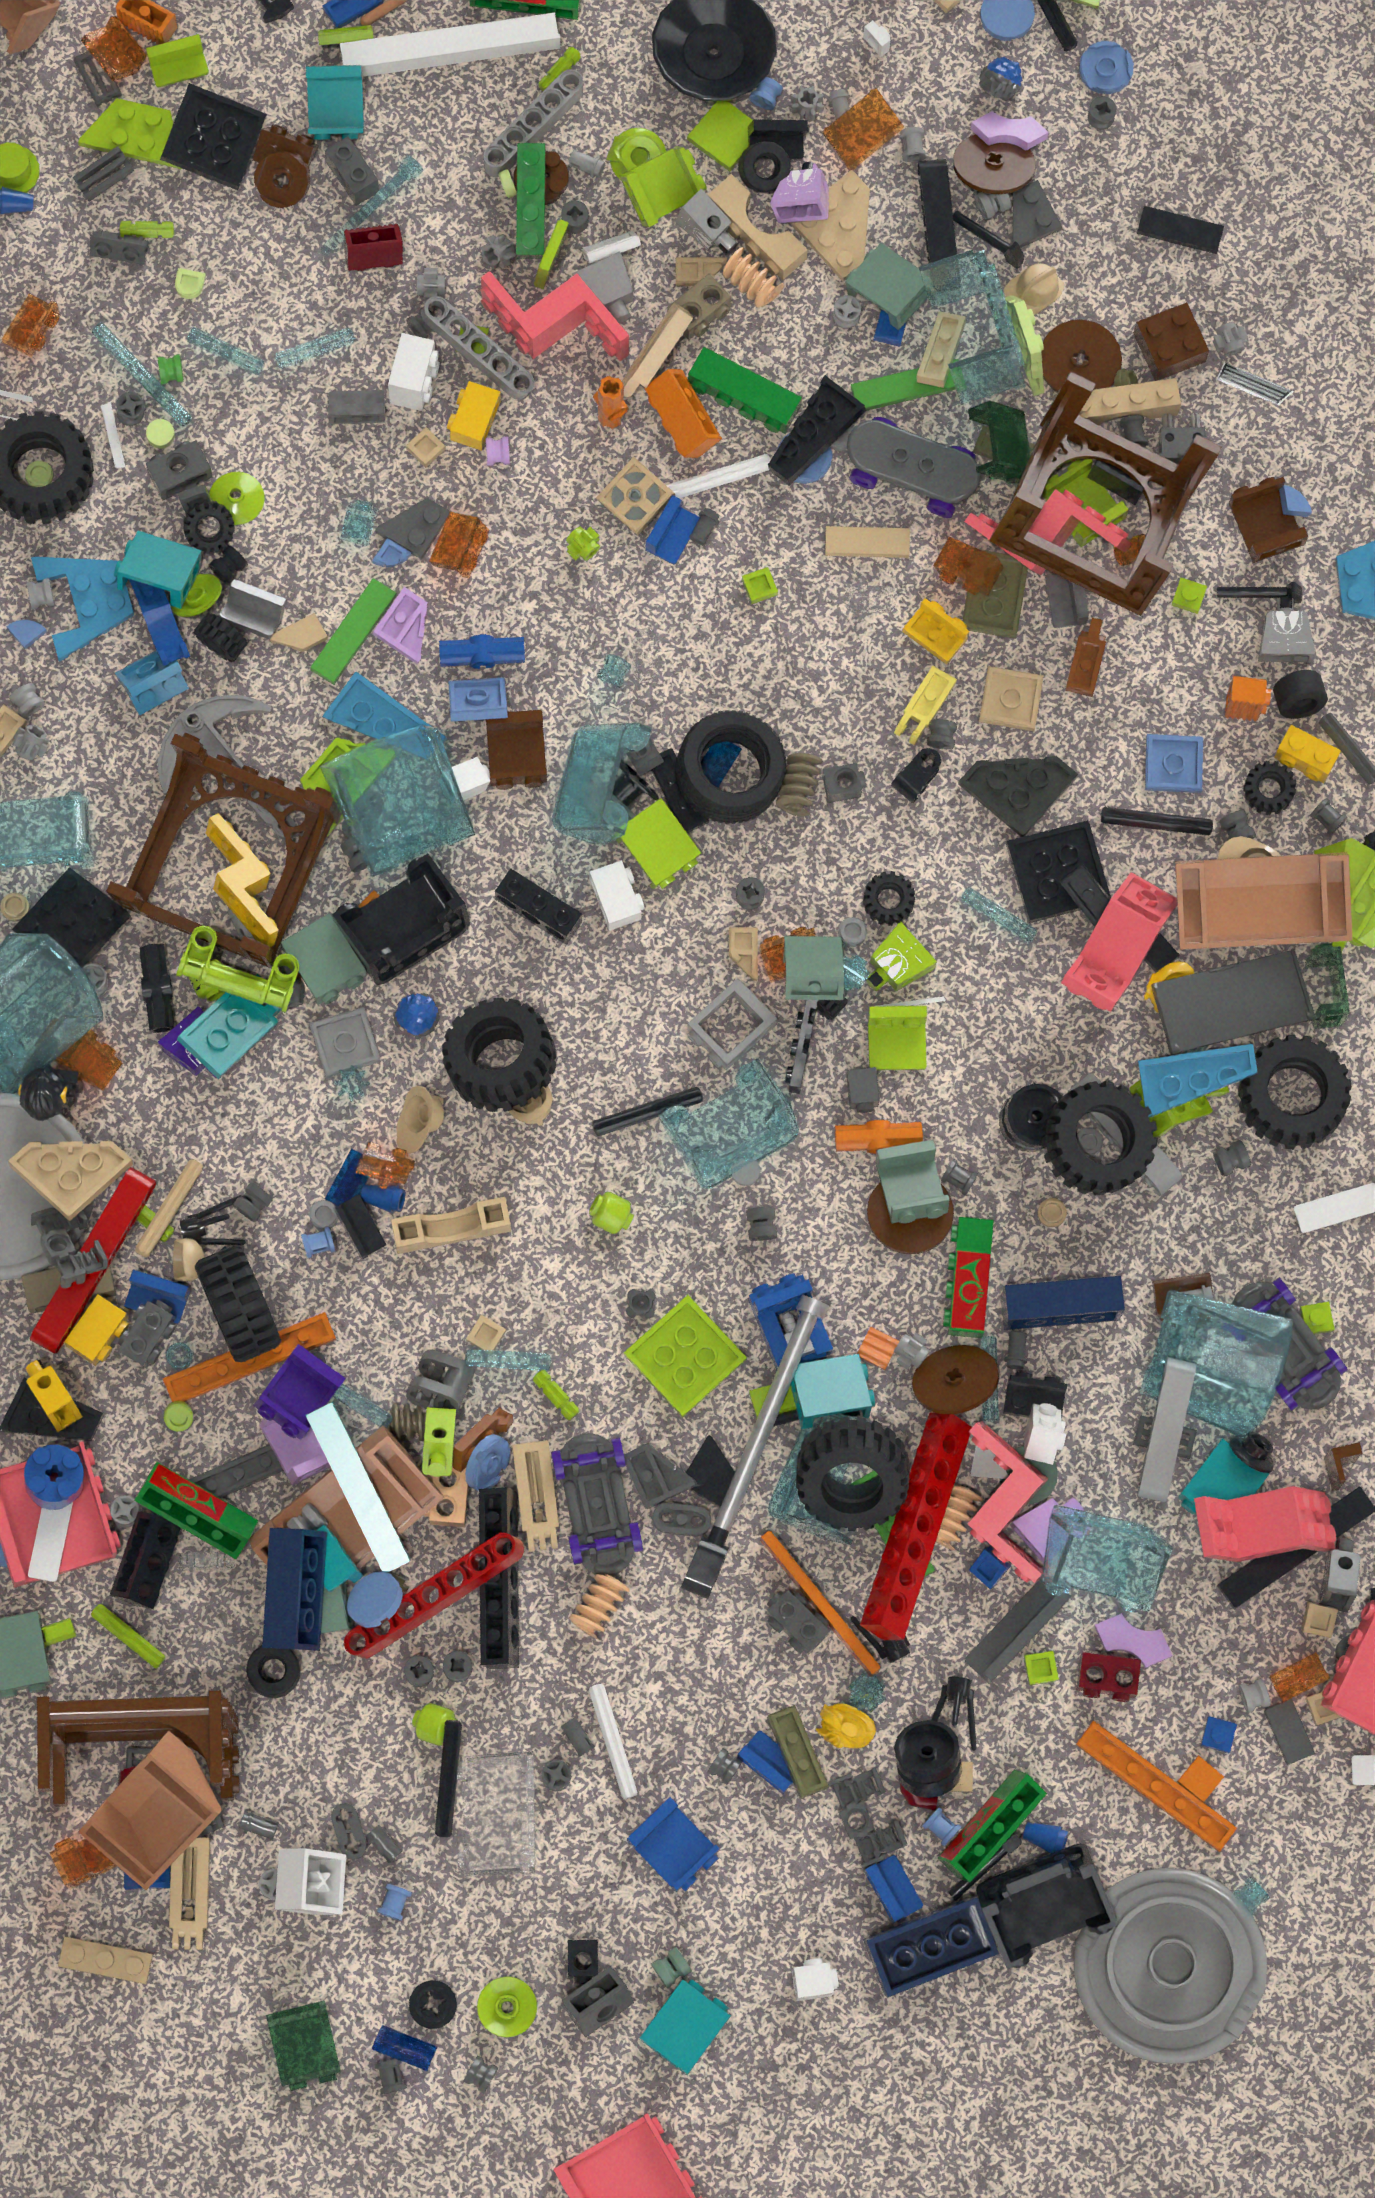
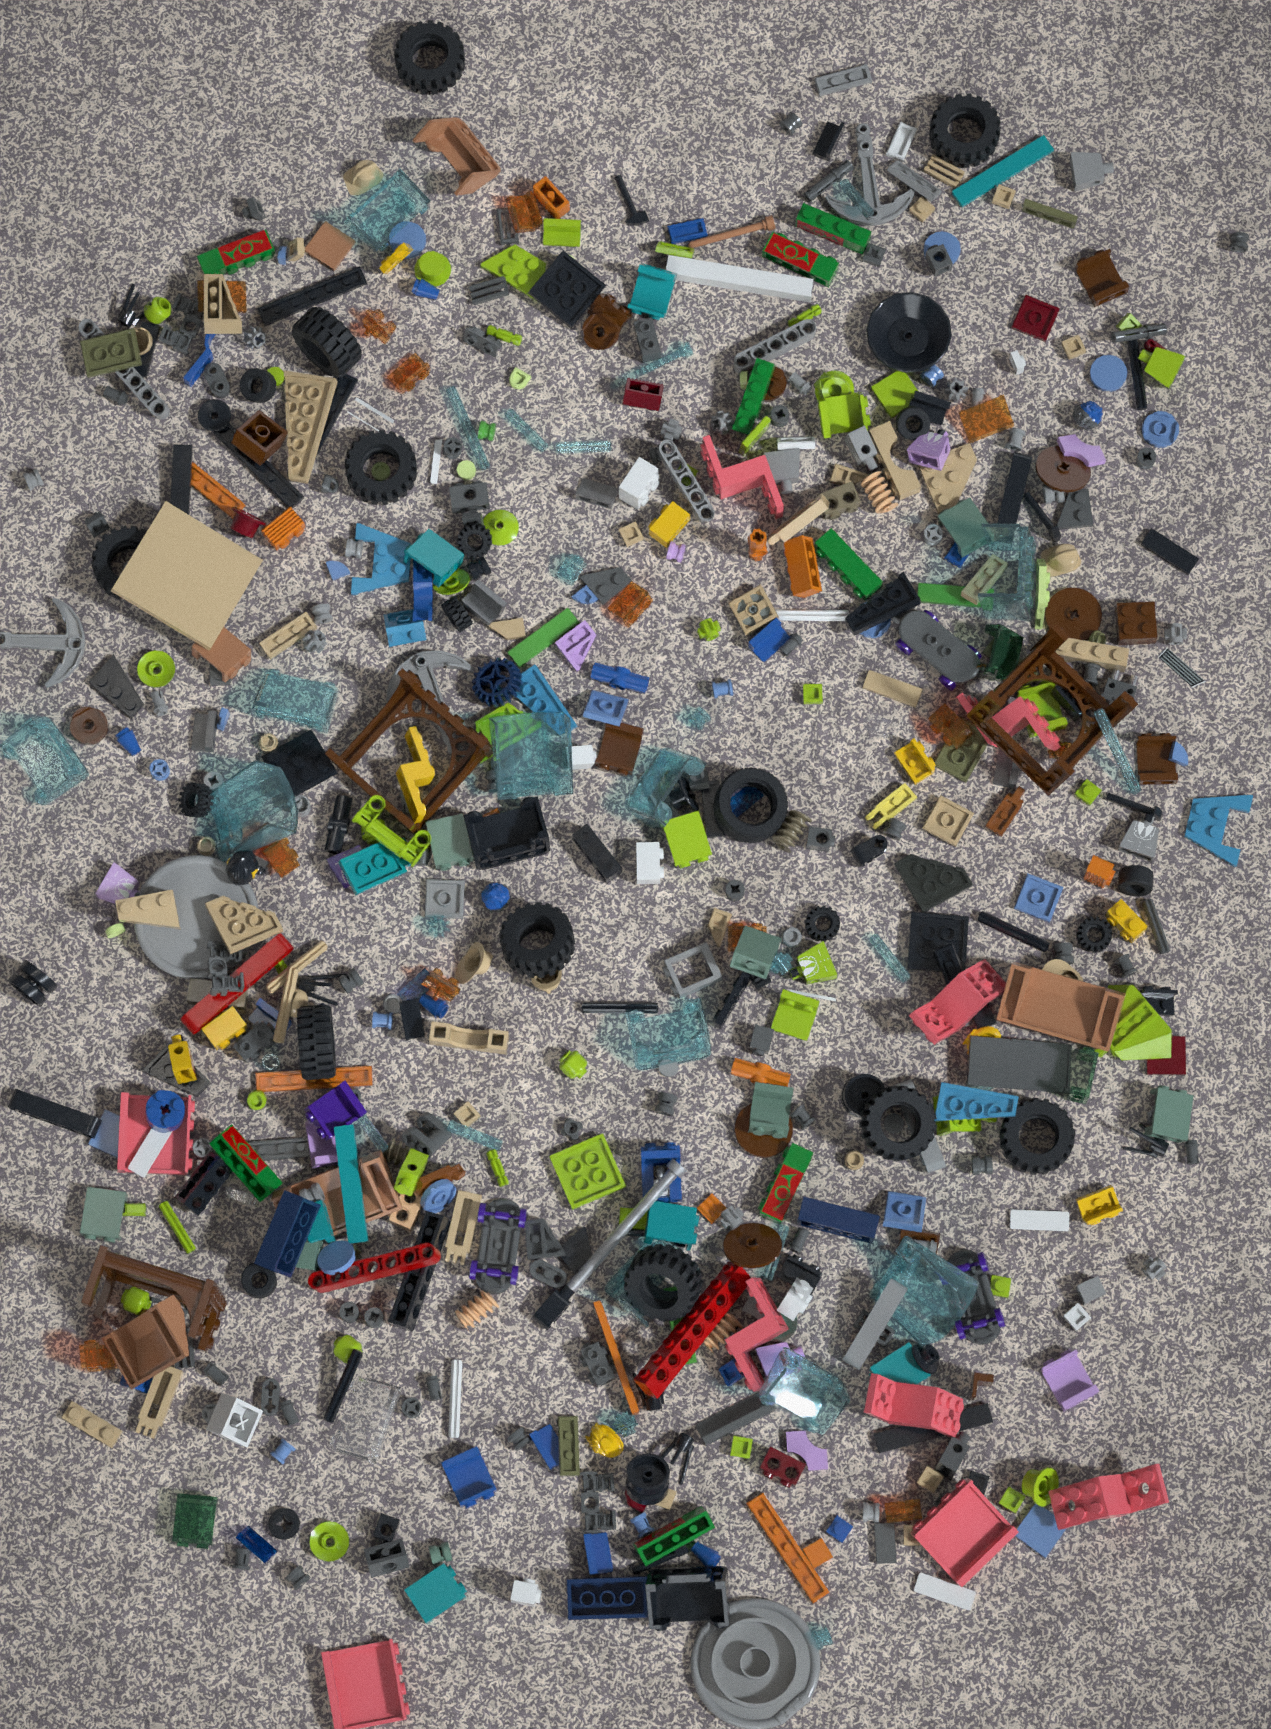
camera: 25 degrees right, 0 degrees up
(106, 1760) = (135, 1300): none -> lime head
(174, 1267) = (285, 1006): none -> tan axle
(320, 716) = (502, 687): none -> dark blue gear
(631, 619) = (722, 688): none -> medium blue bush
(1148, 1259) = (904, 1211): none -> medium blue tile
(1212, 523) = (1117, 751): none -> clear light blue axle

